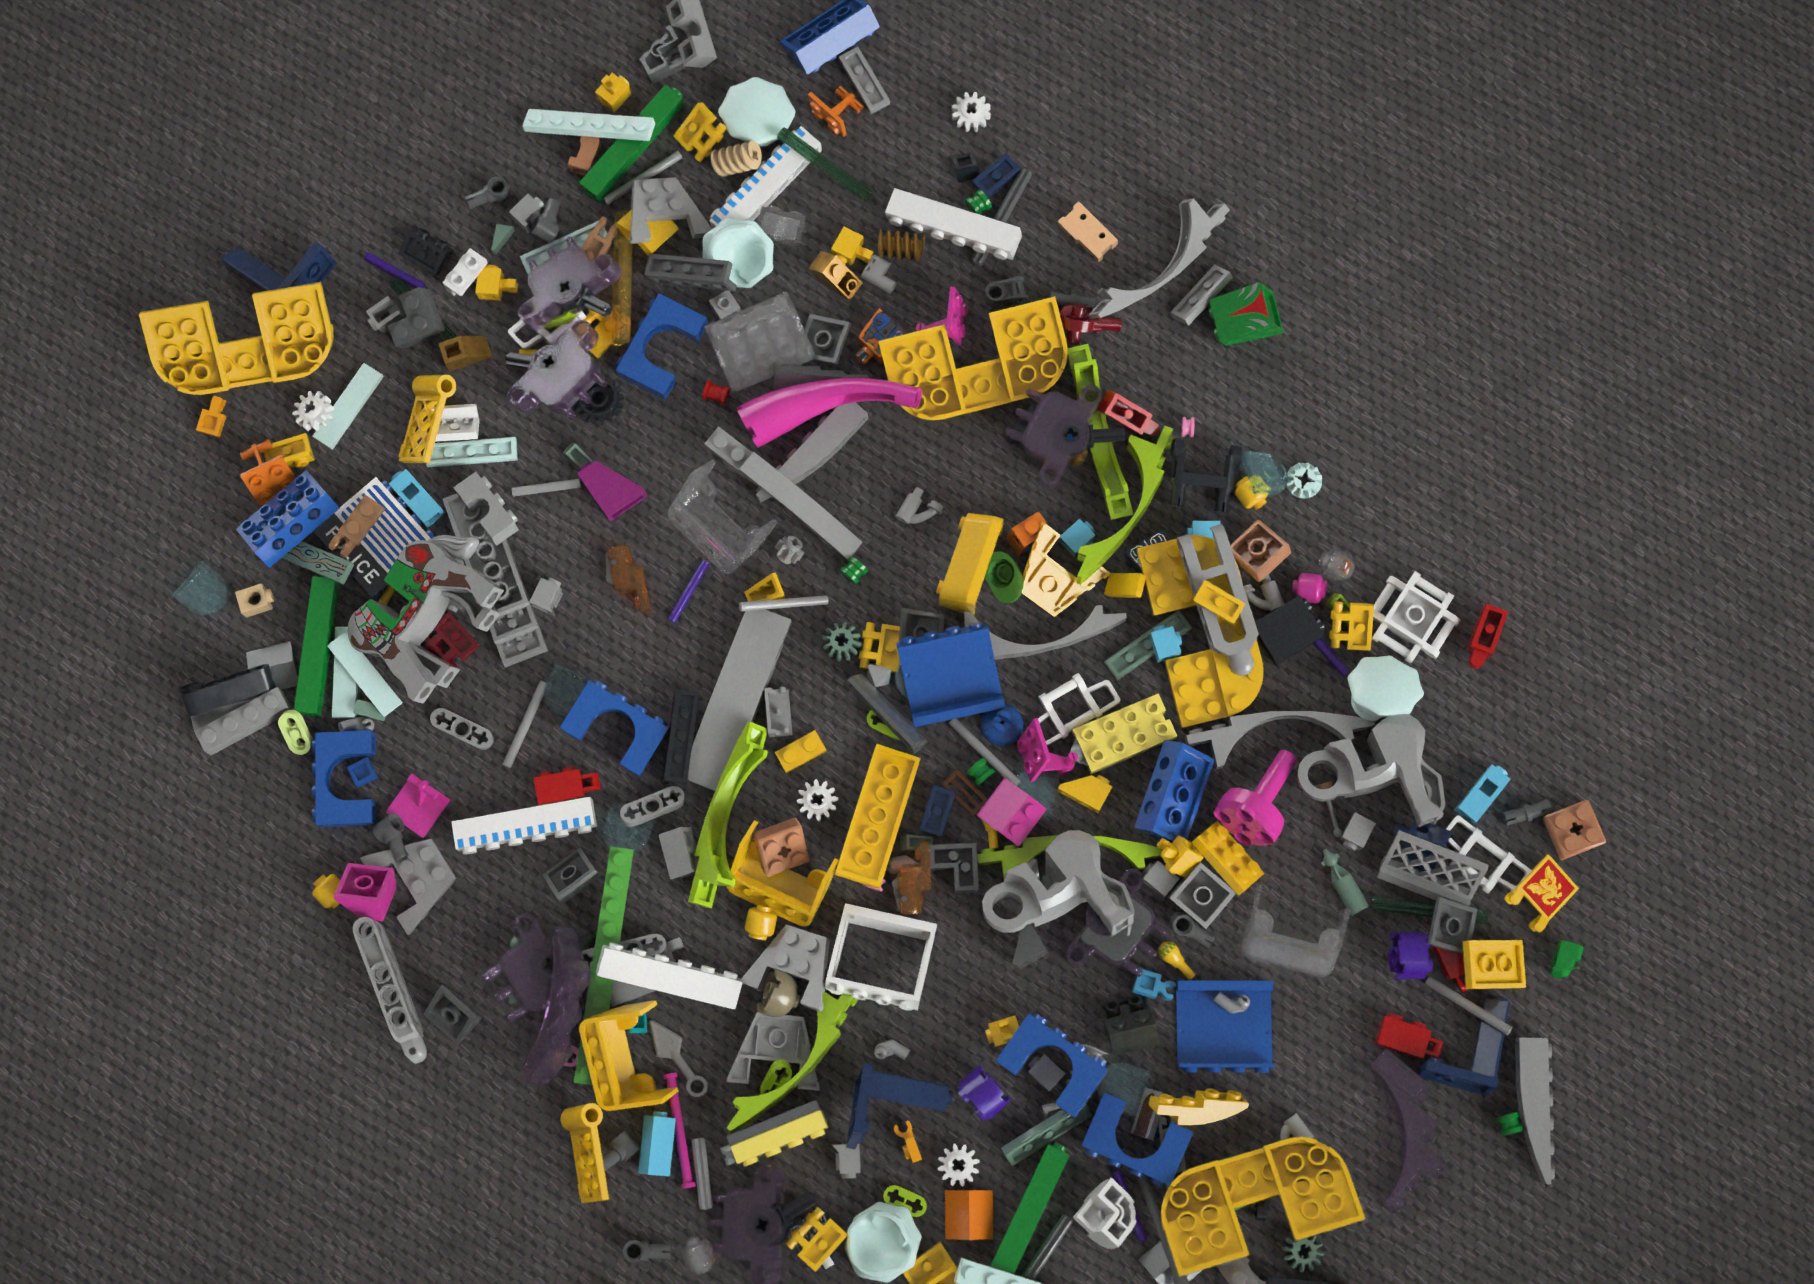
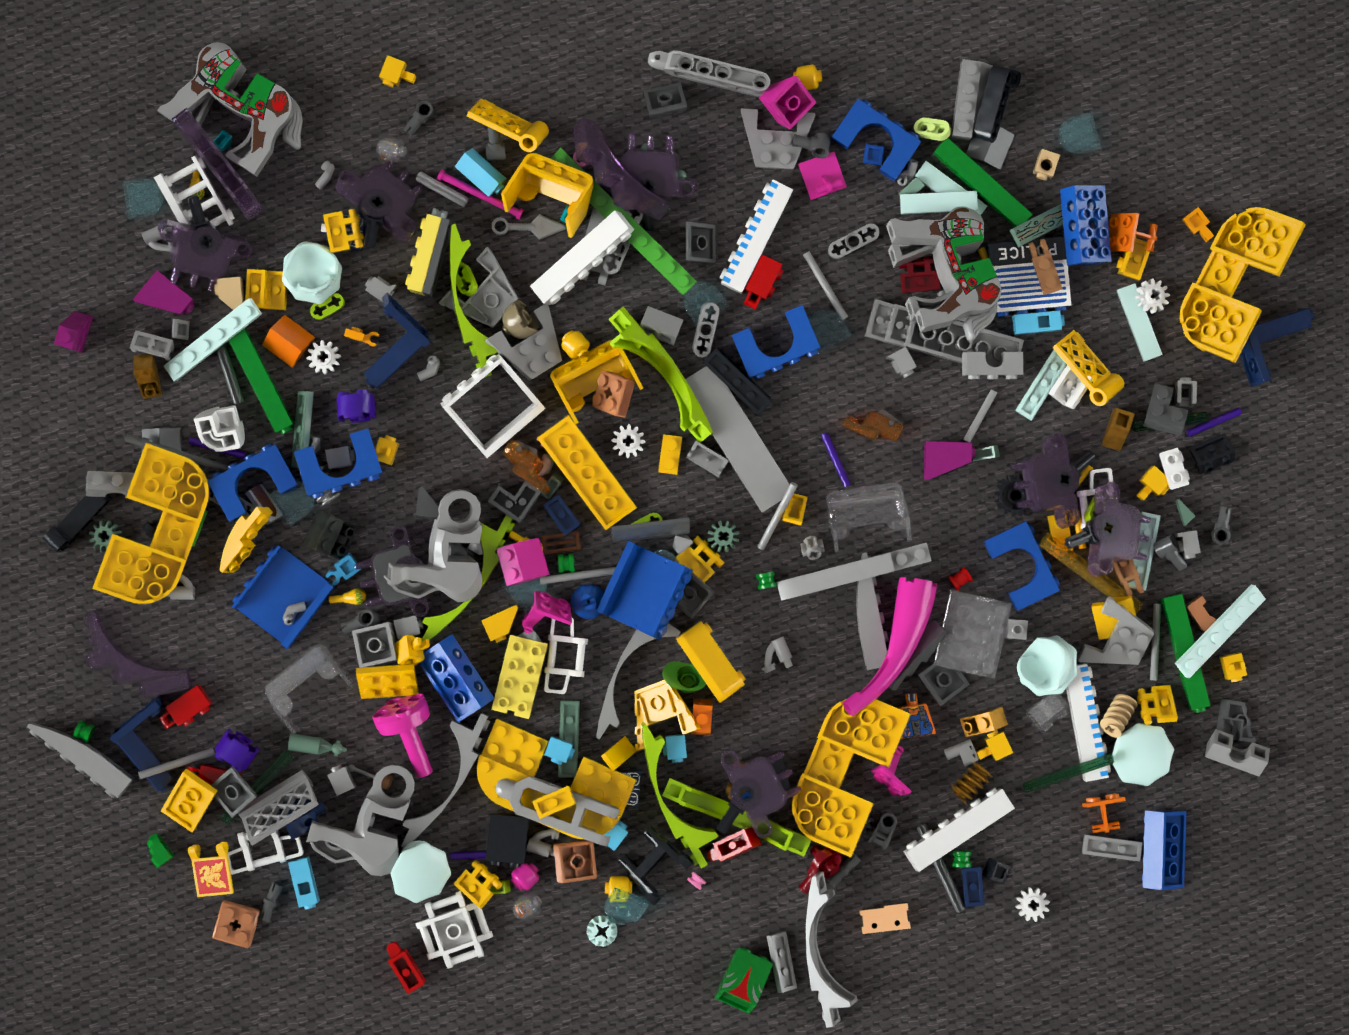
camera: 125 degrees right, 10 degrees up
(690, 272) = (1058, 622): dark grey fence -> none

